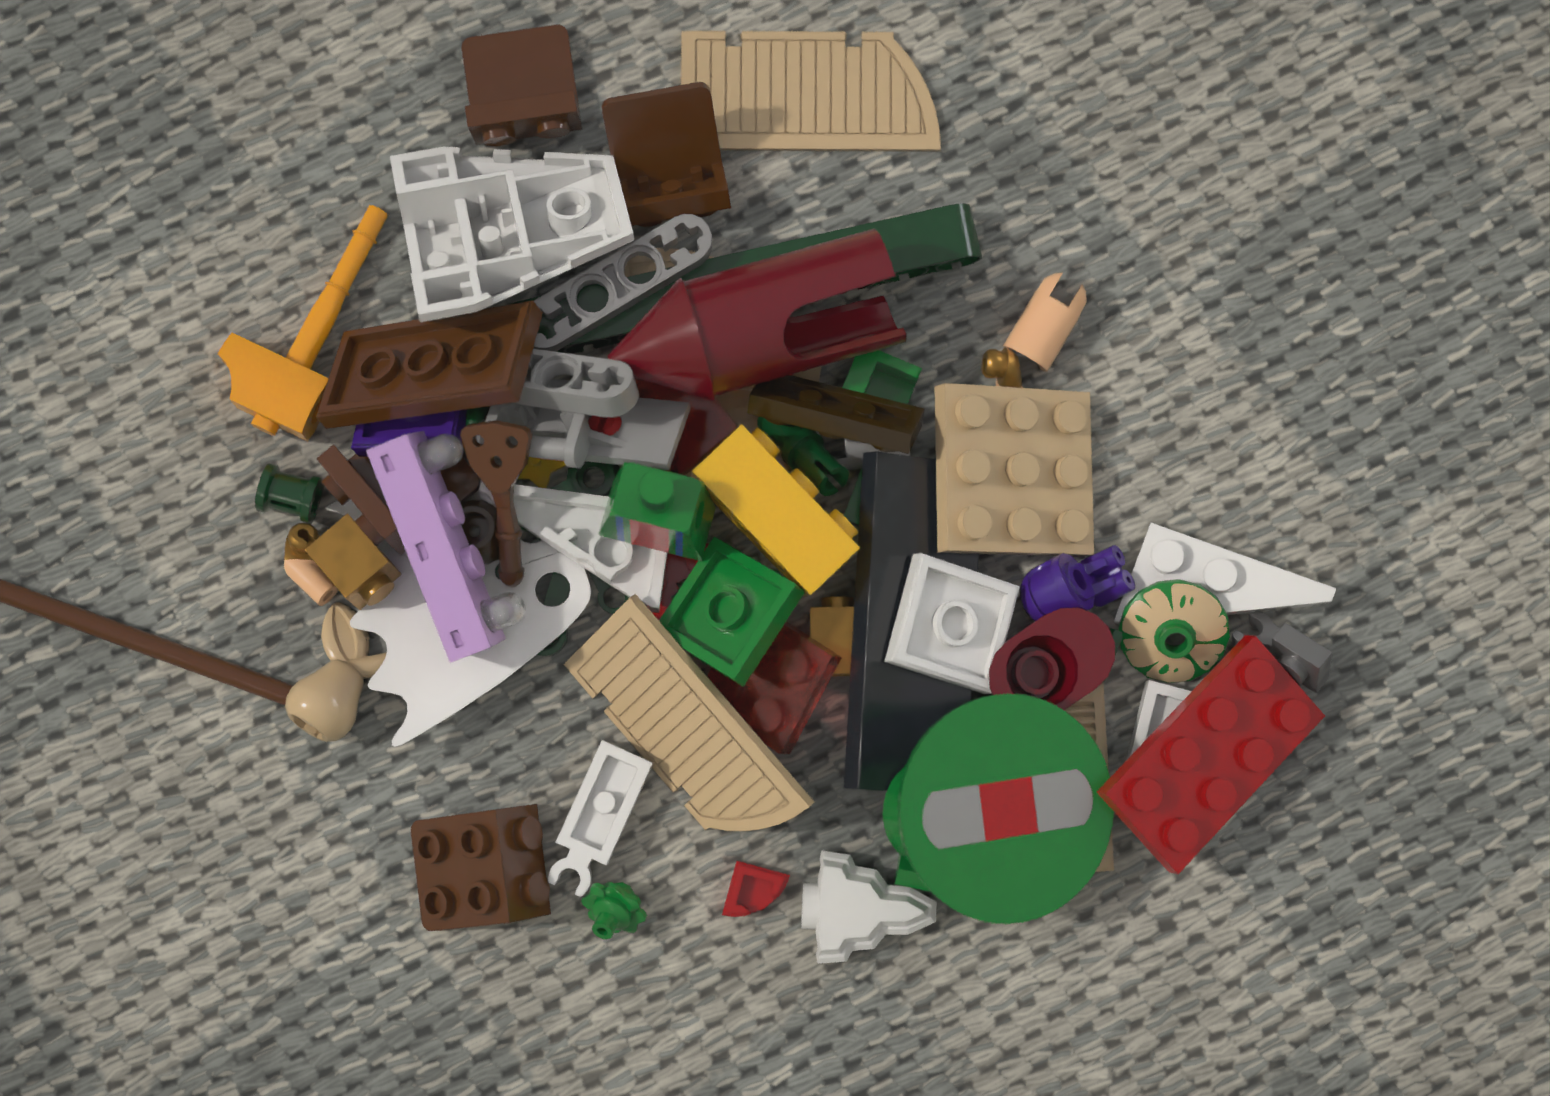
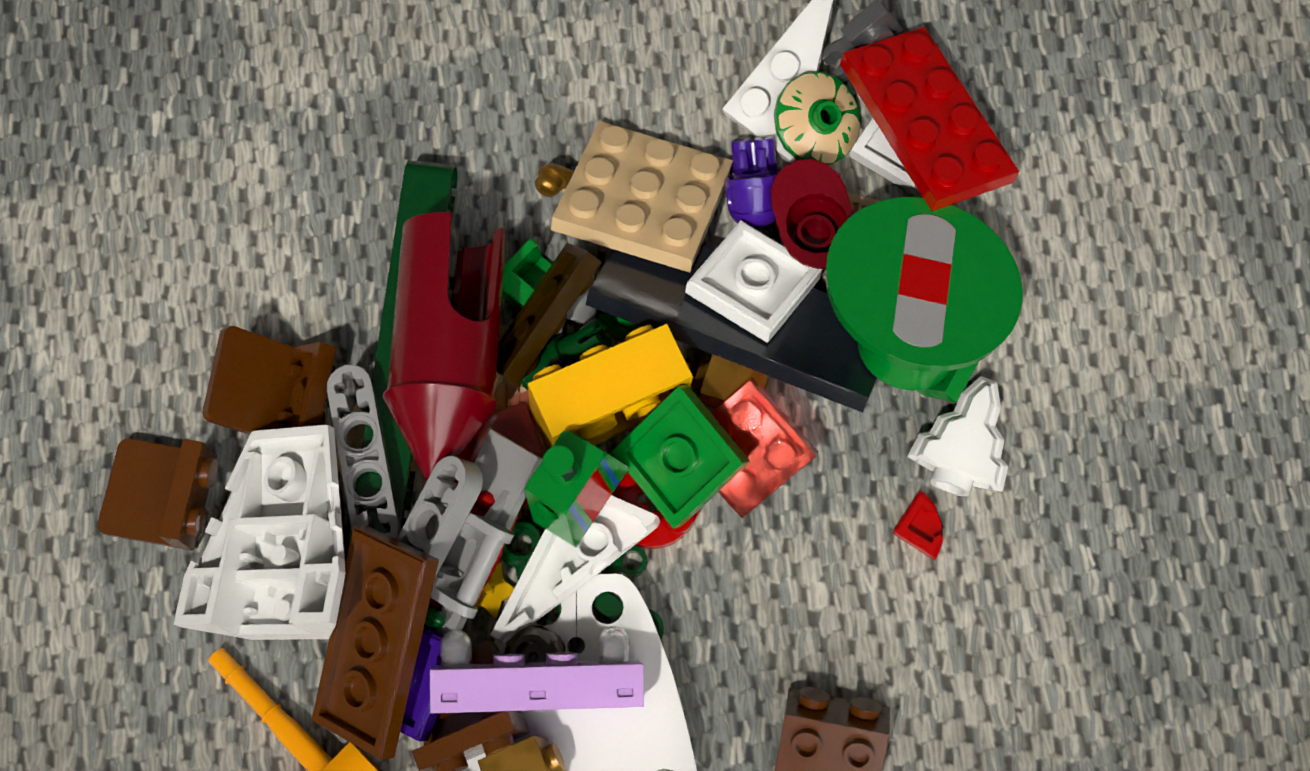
camera: 65 degrees left, 10 degrees down
(501, 481) = (500, 609): reddish brown piece -> none
(600, 811) = (814, 632): white plate -> none
(613, 909) = (902, 647): green plant -> none
(684, 724) = (763, 531): tan piece -> none
(812, 91) = (263, 257): tan piece -> none
(1045, 324) = (528, 134): light nougat piece -> none

